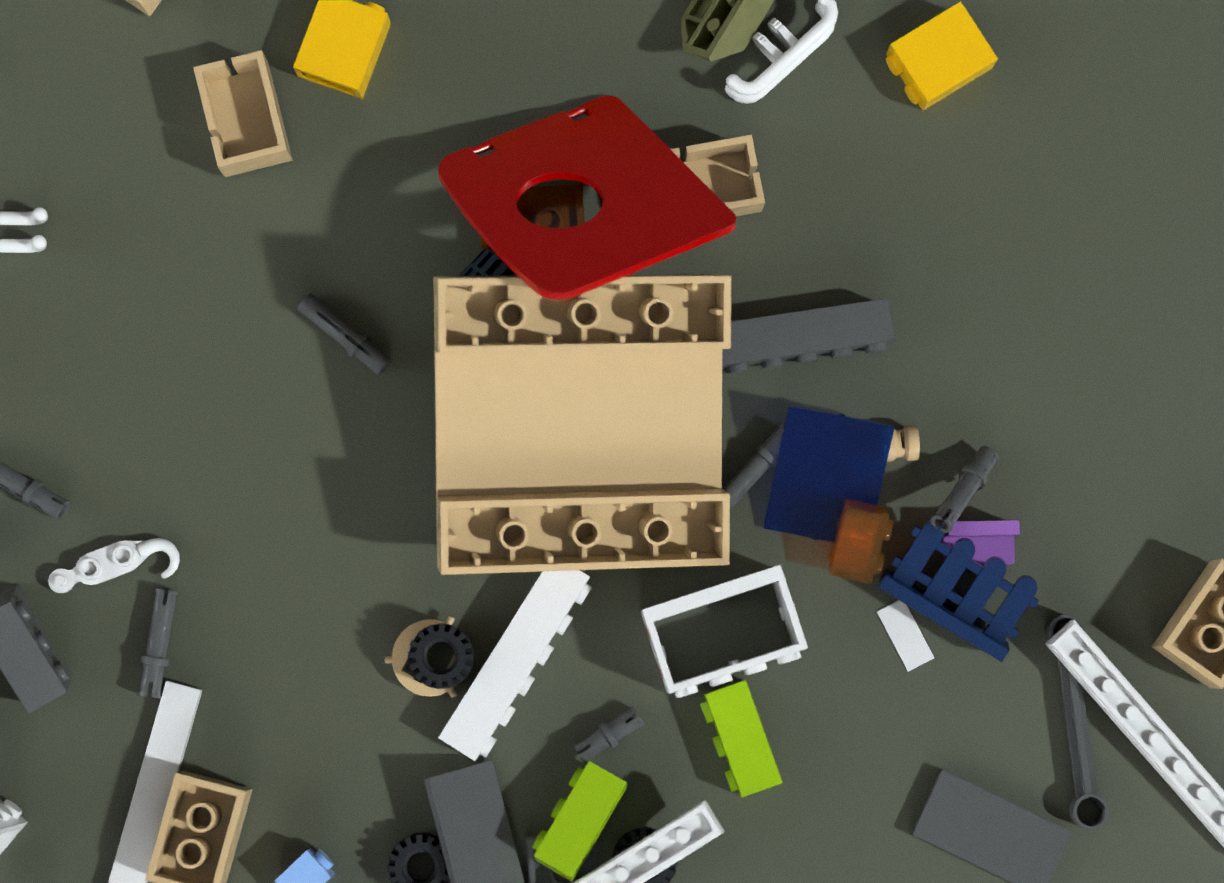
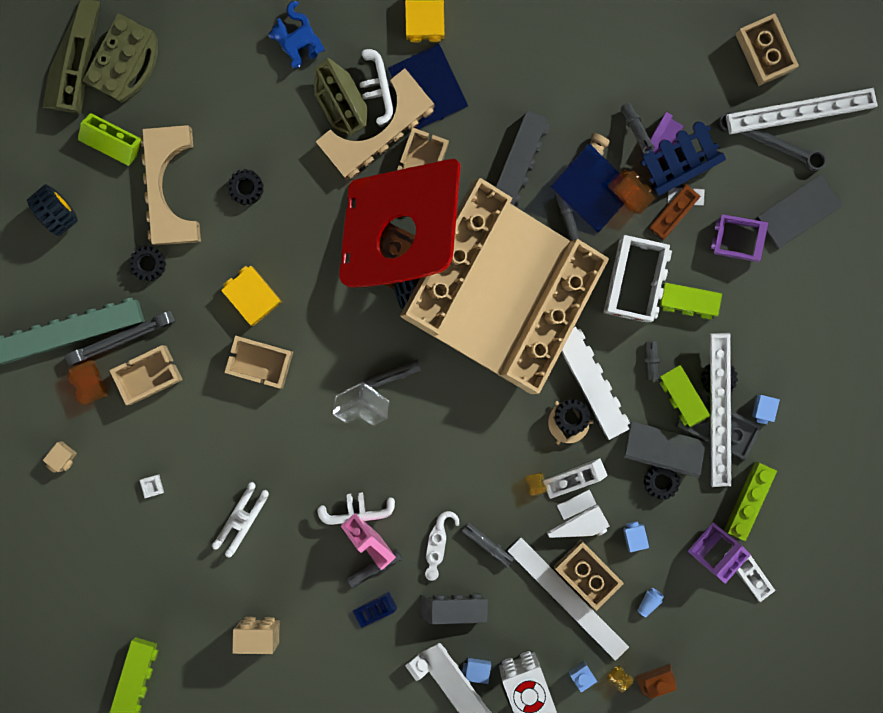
camera: 55 degrees left, 5 degrees up
(57, 429) = (367, 538): none -> bright pink panel
(79, 399) = (365, 516): none -> white piece
(271, 311) = (361, 402): none -> clear panel
(279, 781) = (584, 524): none -> white slope
(298, 665) = (535, 483): none -> clear yellow wheel
(306, 750) = (576, 504): none -> white sticker
(346, 722) = (575, 478): none -> white slope
(781, 117) = (411, 107): none -> tan arch
(832, 128) = (436, 79): none -> clear blue piece
(868, 630) = (674, 212): none -> dark orange tile
(888, 717) = (762, 229): none -> medium lavender window

